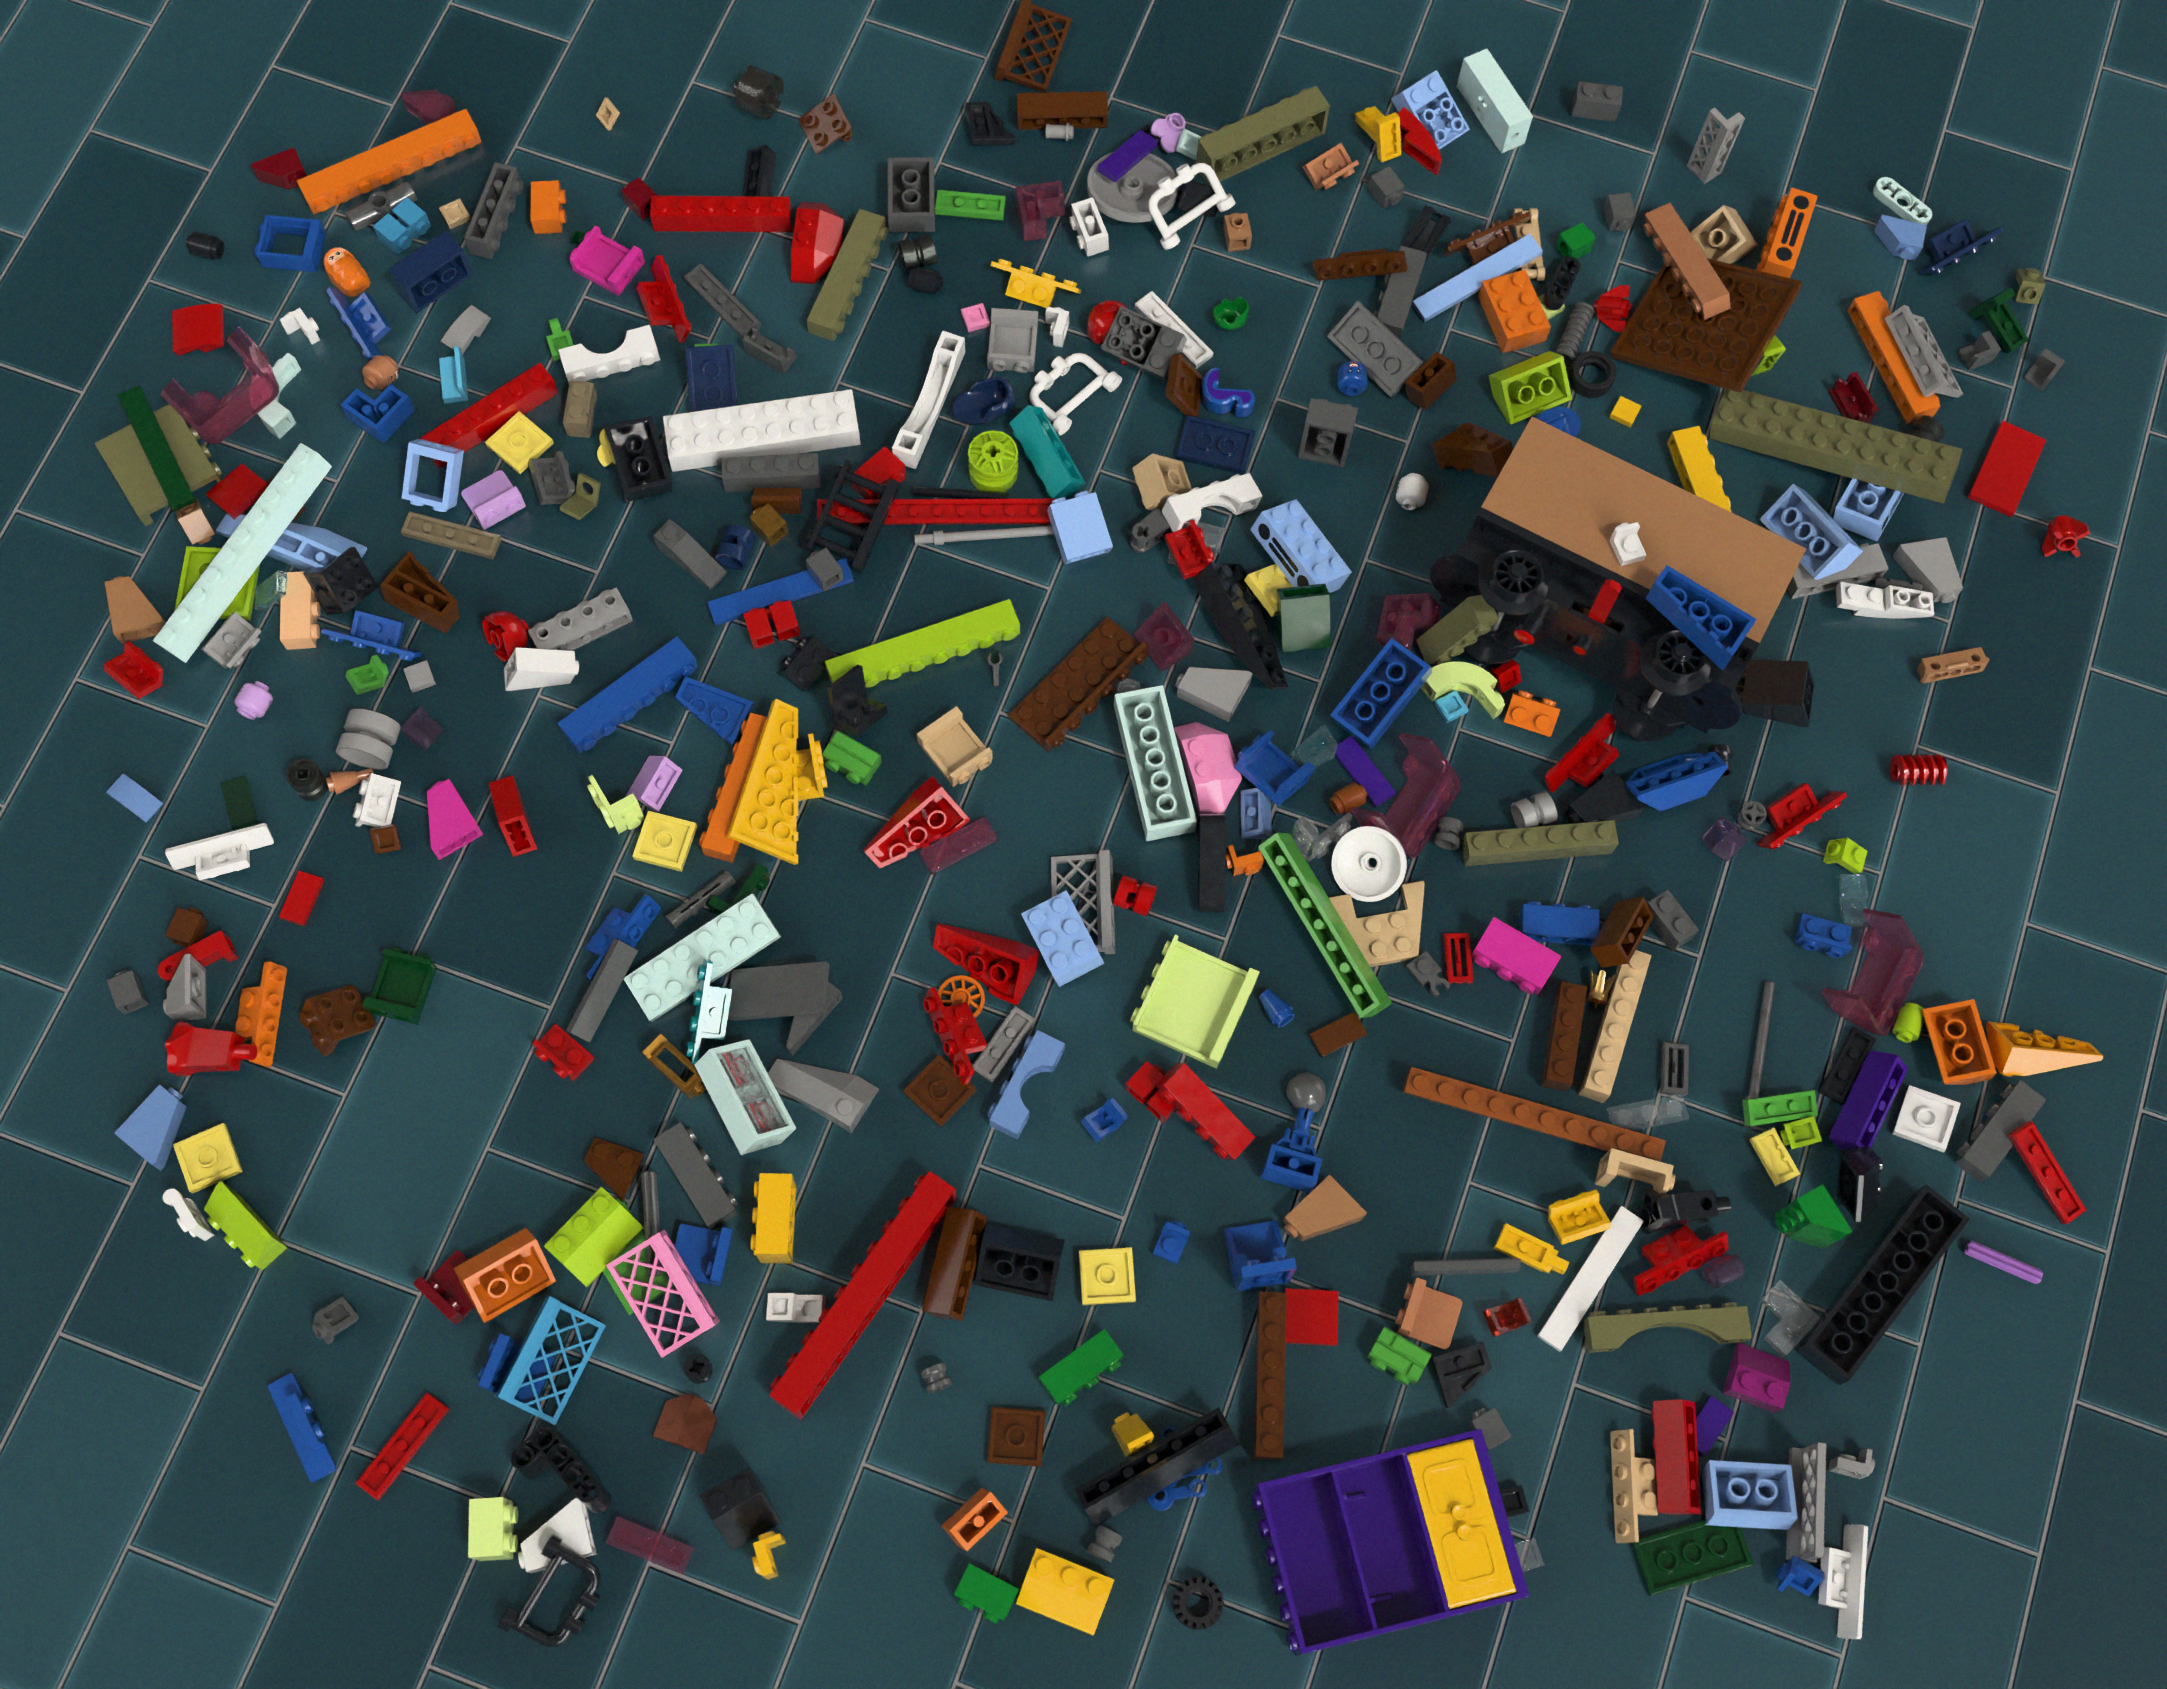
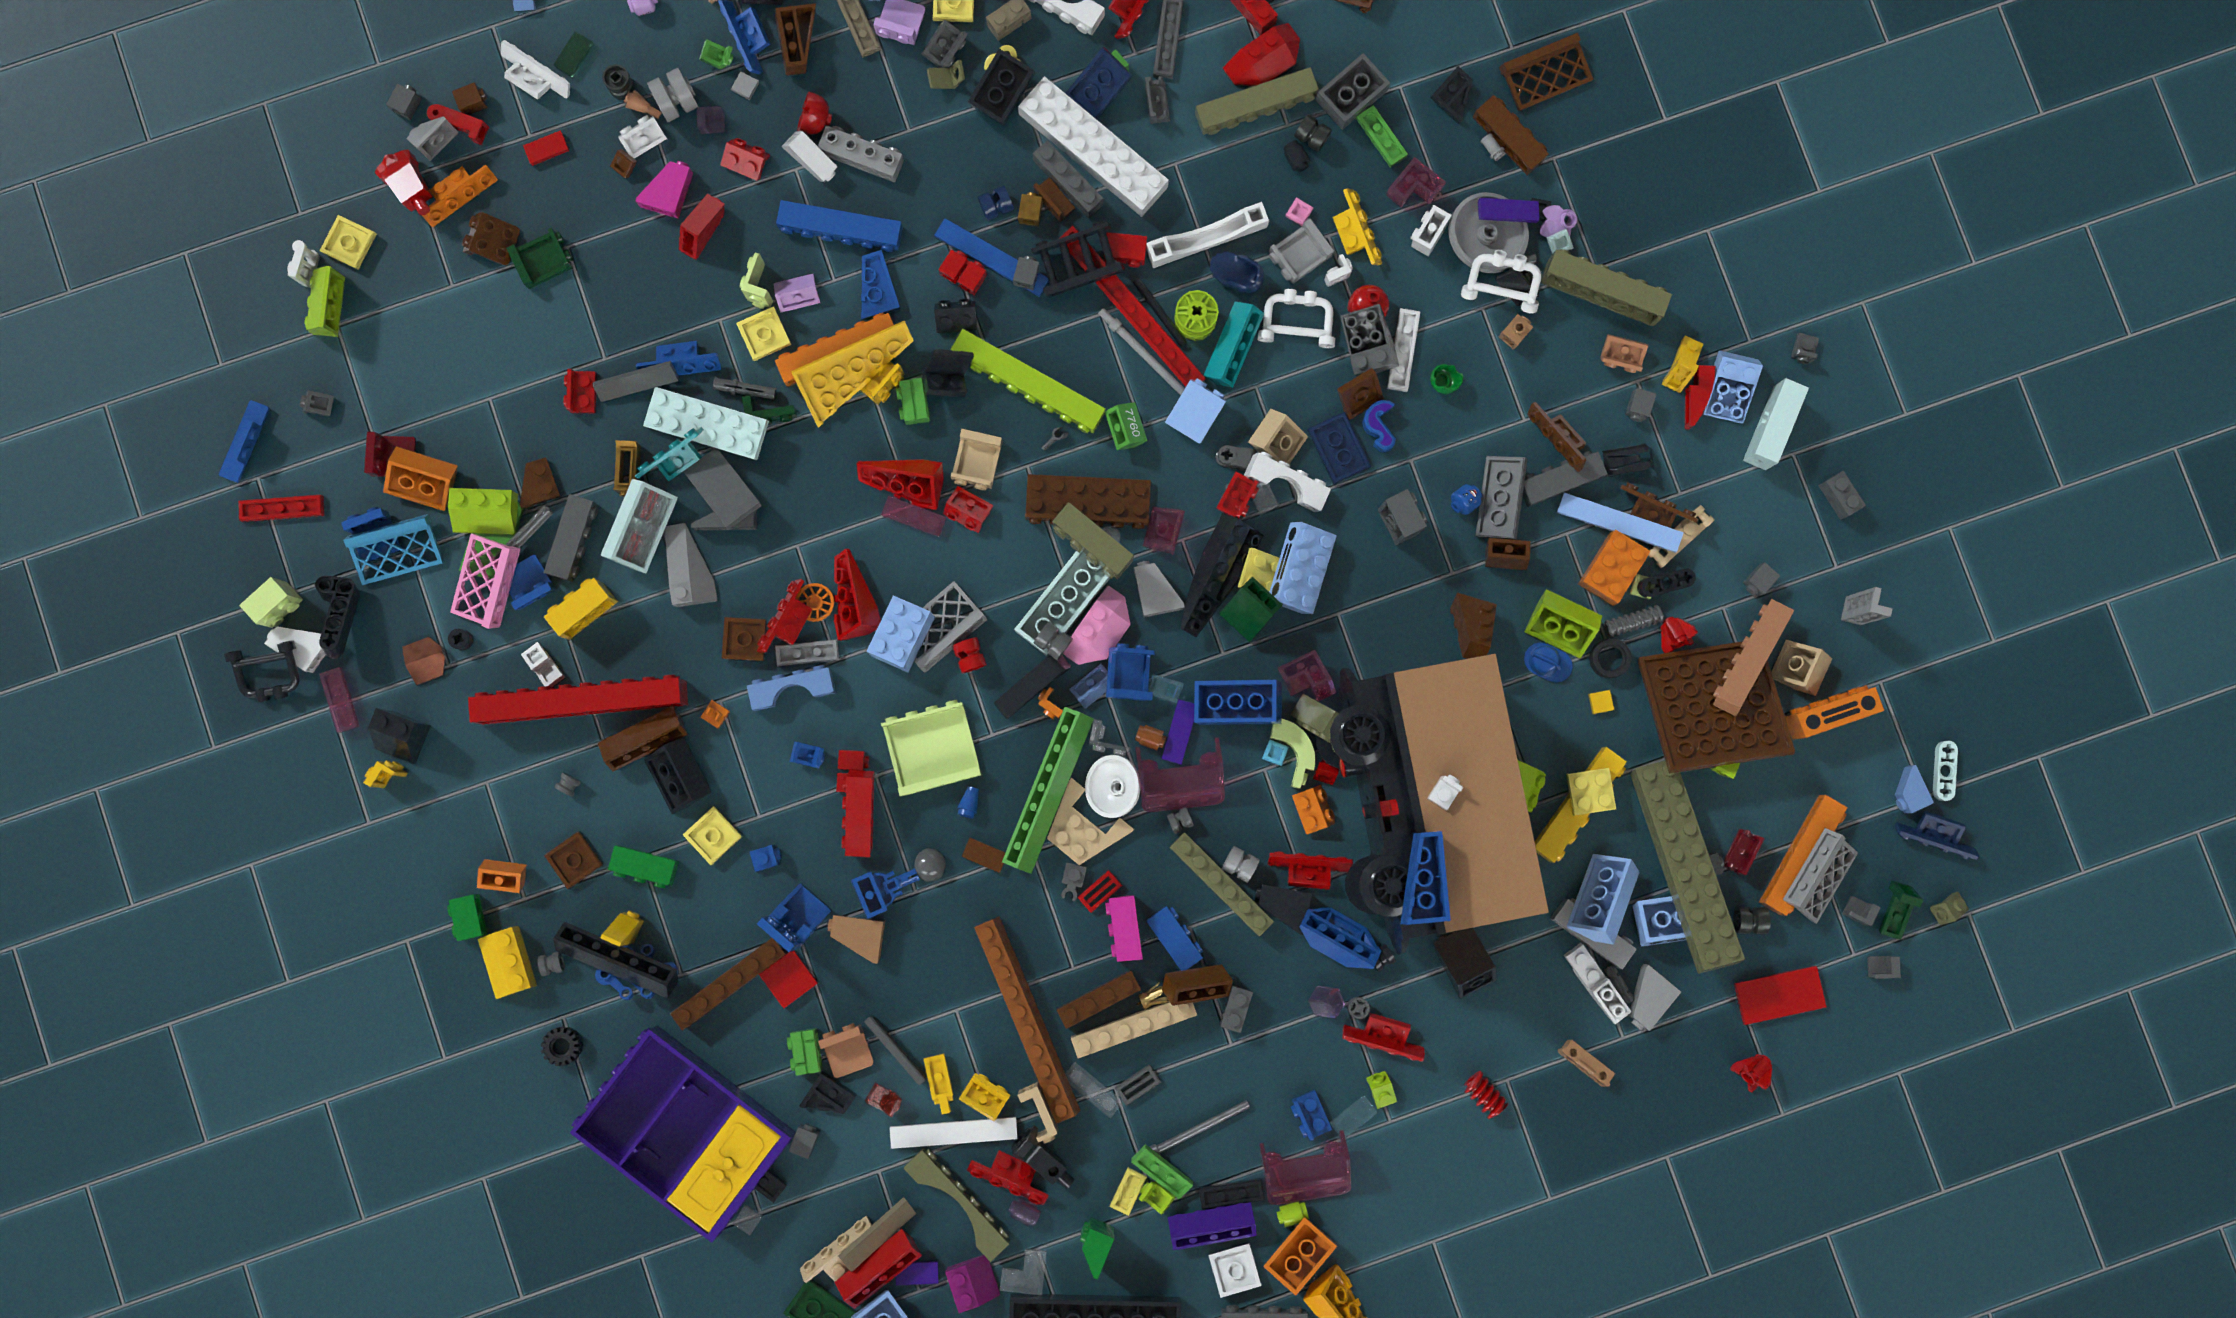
camera: 50 degrees right, 15 degrees up
(154, 1126) = (339, 194): medium blue slope -> none
(486, 729) = (744, 158): none -> bracket
(688, 554) = (967, 178): dark grey slope -> none
(988, 1178) = (715, 714): none -> orange tile
(995, 792) = (967, 509): none -> red bracket
(1040, 596) = (1126, 426): none -> bright green brick
(1128, 692) = (1093, 541): none -> olive brick
(1190, 800) = (1052, 640): none -> dark grey wheel
(1412, 491) = (1413, 606): white head -> none
(1445, 39) = (1805, 348): none -> dark grey bracket
(1575, 241) = (1709, 568): green brick -> none
(1641, 1429) = (877, 1234): none -> dark tan tile
(1704, 471) = (1591, 791): none -> light yellow plate
(1859, 1181) = (1149, 1258): black slope -> none

